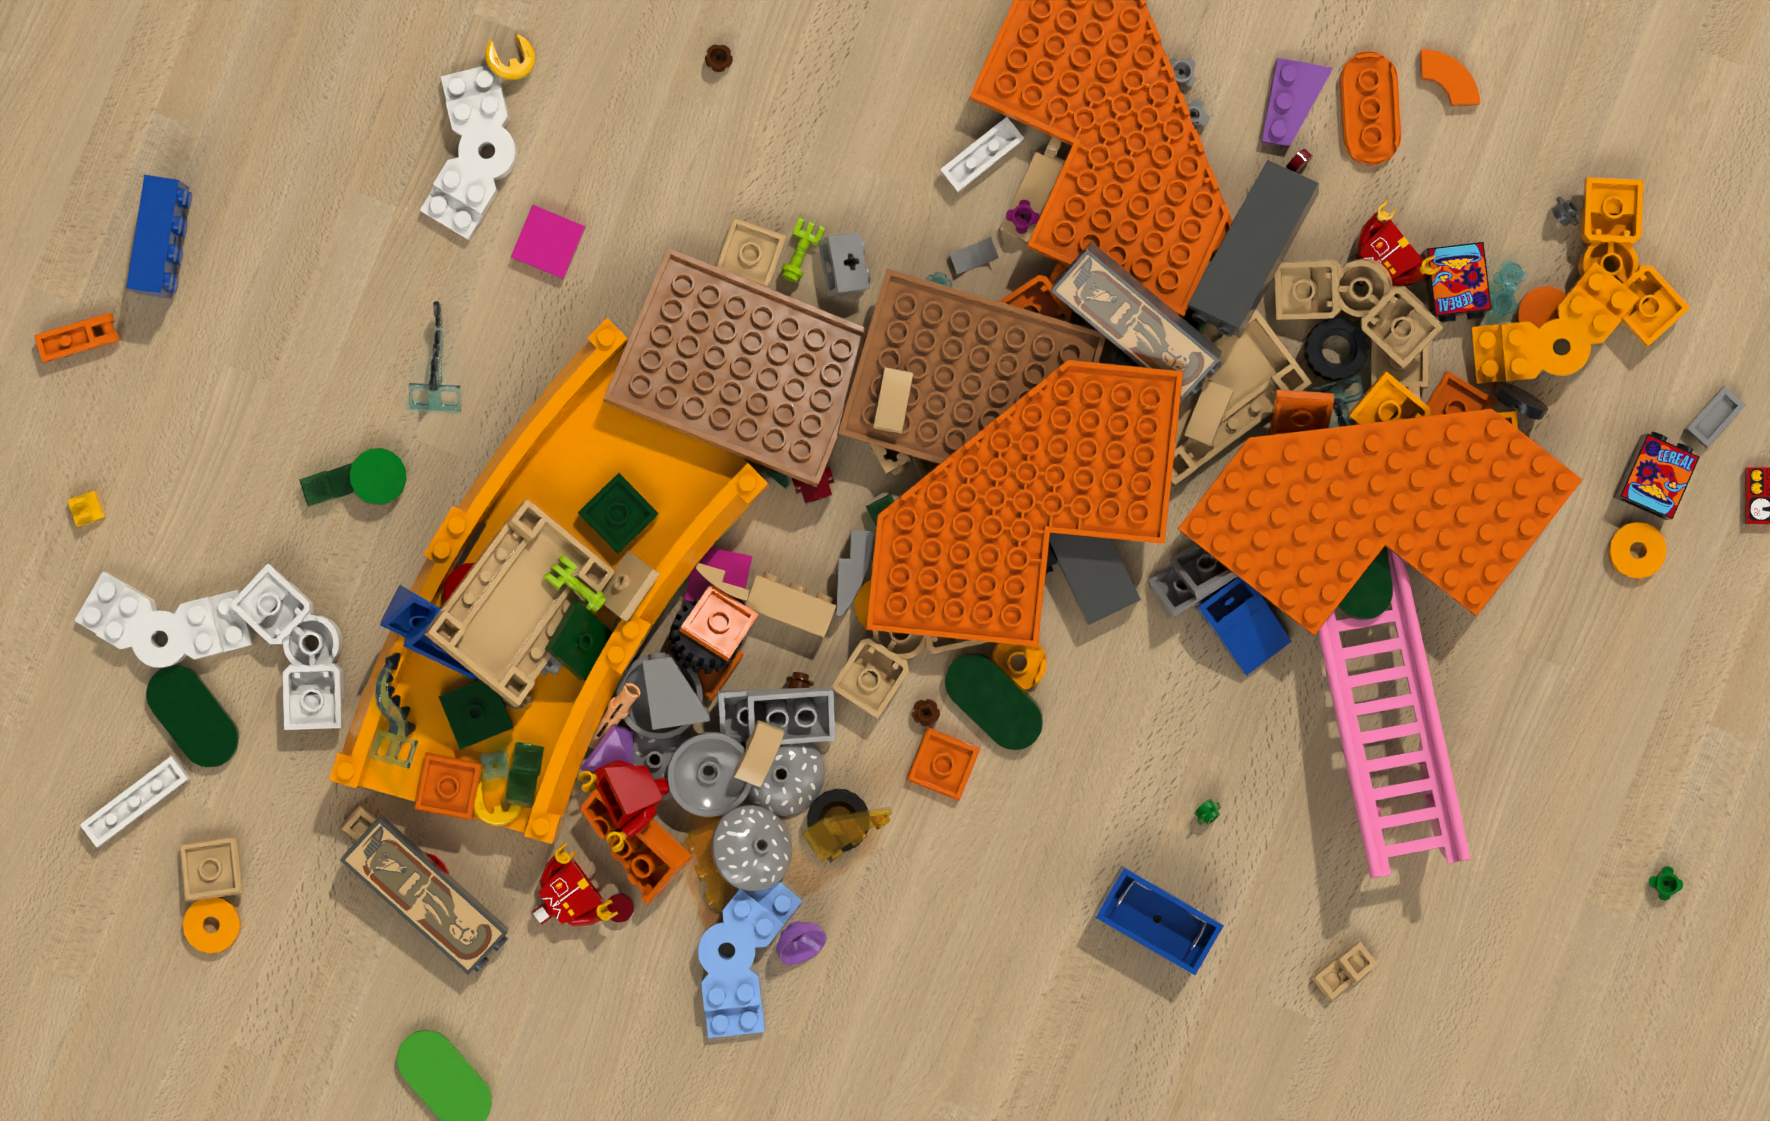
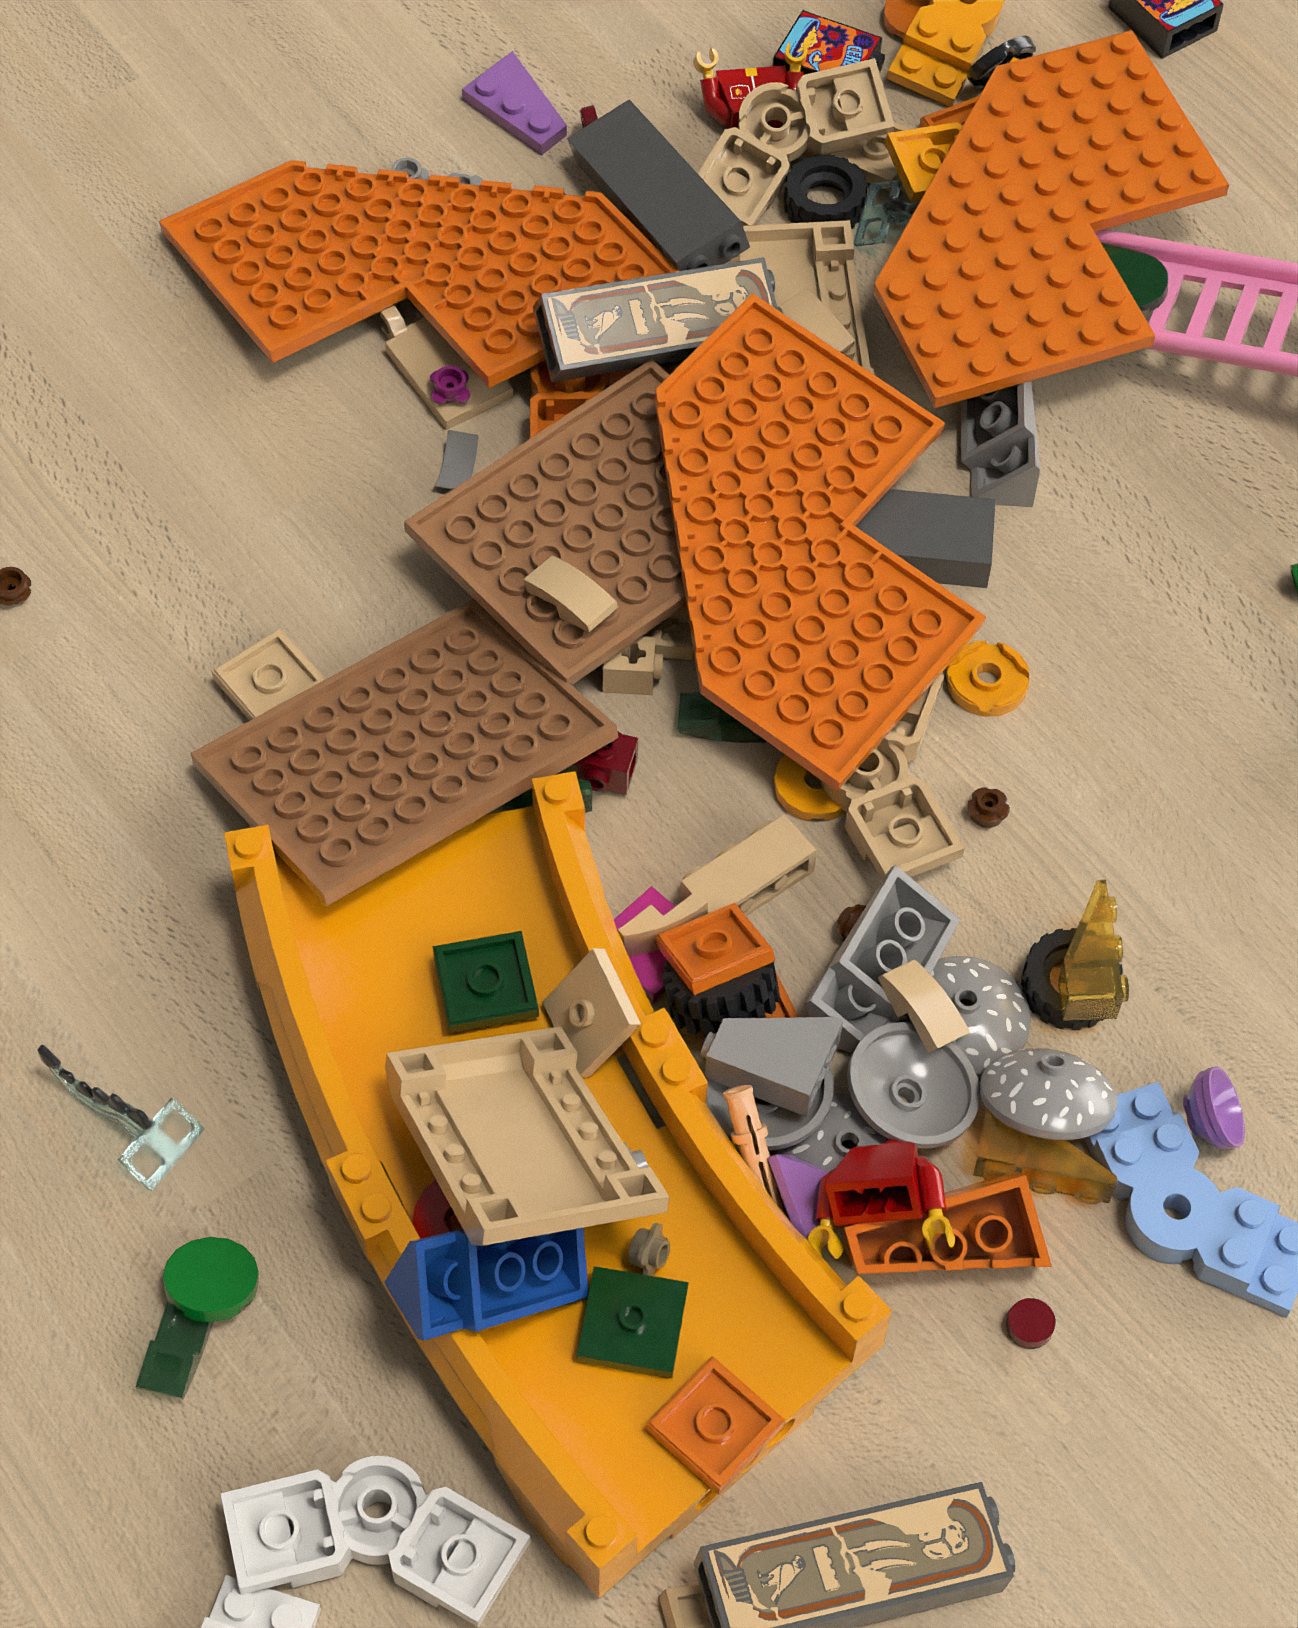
camera: 60 degrees left, 30 degrees down
(396, 715) = (565, 1420): clear light blue piece -> none
(488, 761) = (730, 1328): clear light blue plate -> none
(499, 816) = (803, 1381): yellow head -> none
(523, 774) = (758, 1306): clear green slope -> none
(548, 242) = (72, 895): dark pink tile -> none
(569, 893) = (972, 1369): red torso -> none
(578, 640) = (624, 1109): dark green plate -> none
(595, 601) = (520, 1077): lime hinge -> none
(792, 270) = (326, 647): lime hinge -> none
(840, 278) = (362, 586): light grey brick -> none
(853, 570) = (746, 777): light grey slope -> none
(943, 763) = (1068, 825): orange tile -> none
(982, 154) = (346, 393): white plate -> none
(994, 701) = (1022, 722): dark green tile -> none
(1243, 624) = (1088, 425): blue slope -> none
(1300, 411) = (871, 242): orange tile -> none
(1370, 108) = (581, 47): orange tile -> none
(1510, 303) = (889, 36): clear light blue plate -> none
(1513, 269) = (856, 16): clear light blue plate -> none
(1653, 545) = (1239, 47): light orange tile -> none

